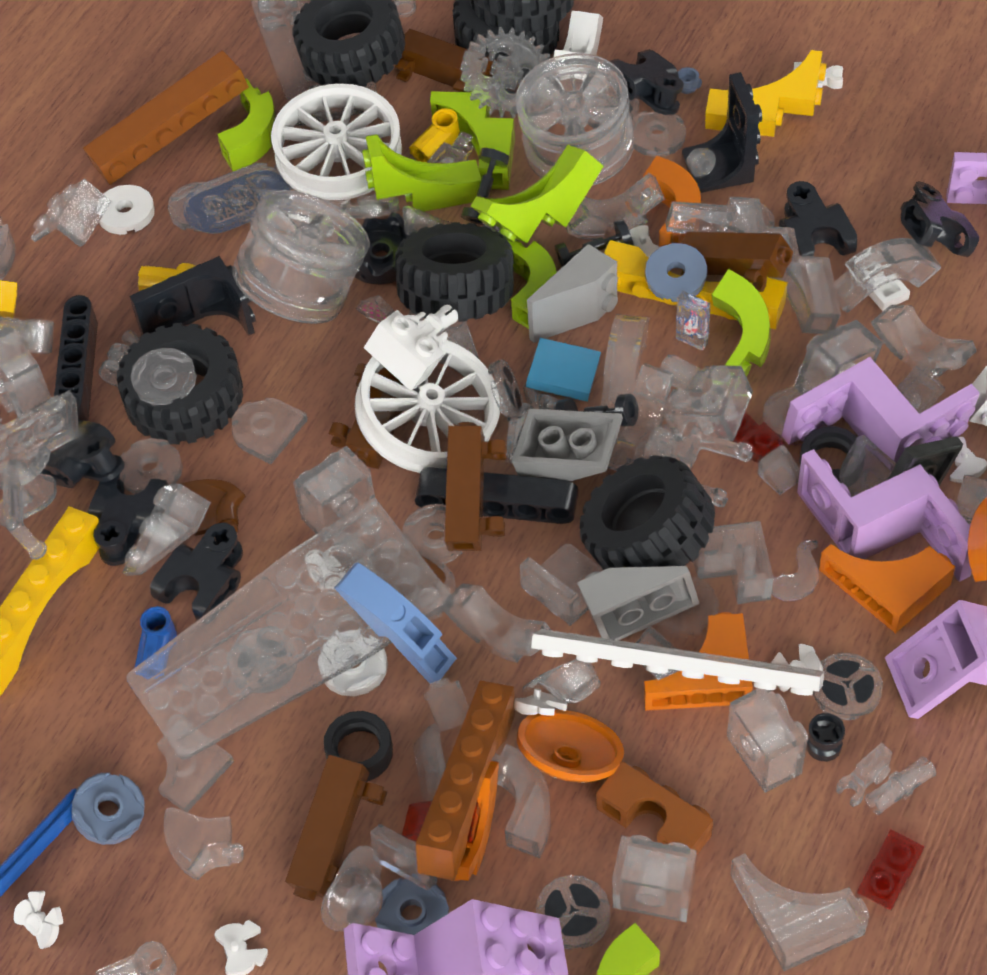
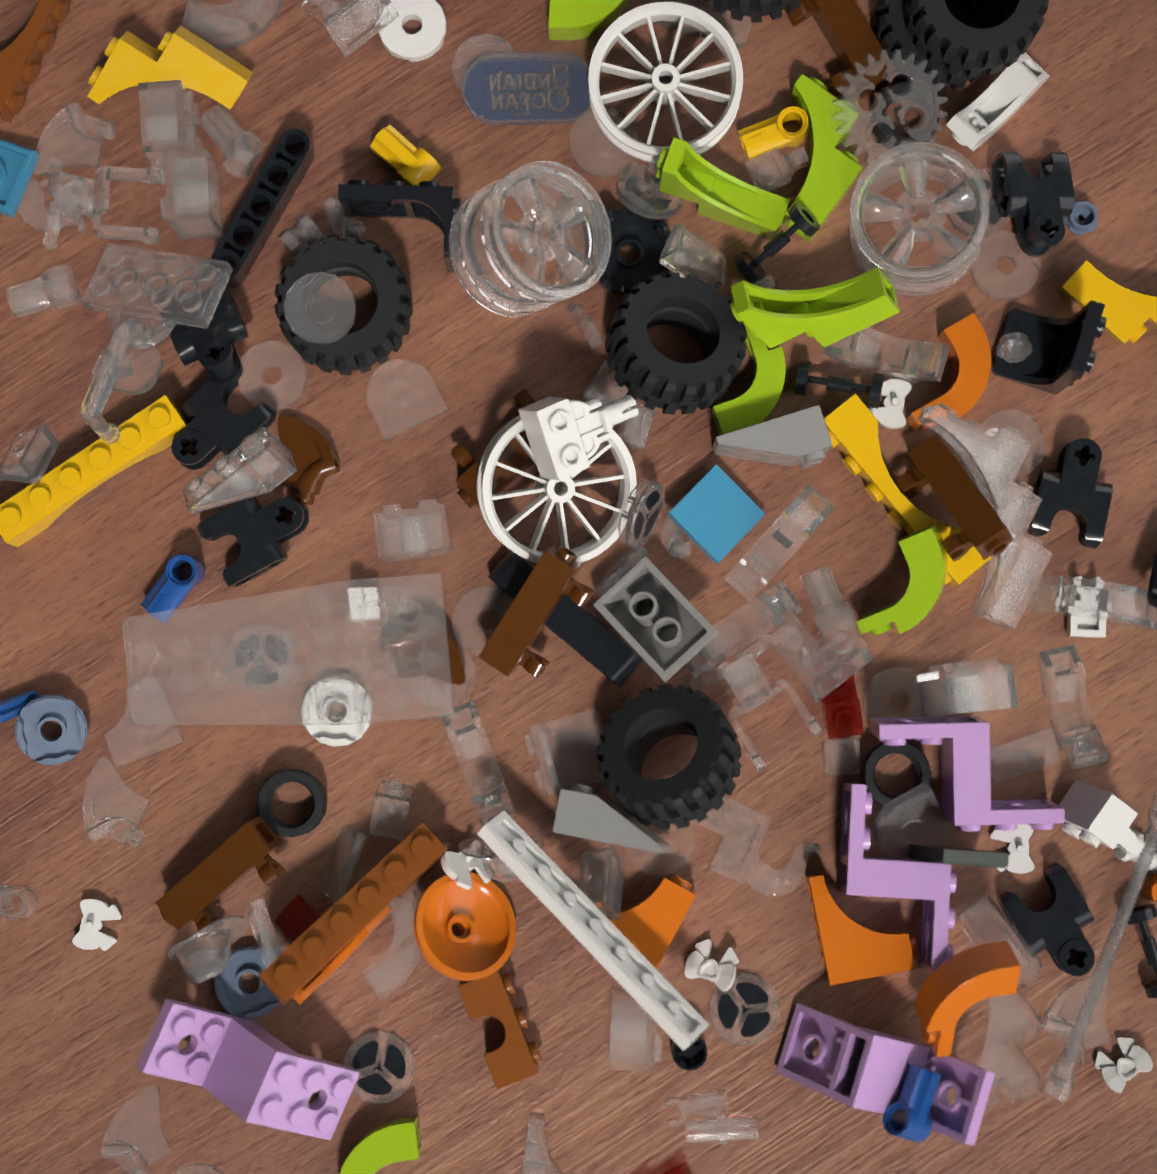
camera: 30 degrees right, 30 degrees up
(397, 619) = (382, 717): medium blue slope -> none
(625, 404) = (732, 616): black wheel -> none
(654, 877) = (455, 1094): clear brick -> none
(675, 256) = (885, 460): sand blue tile -> none
(692, 320) = (868, 545): clear tile -> none

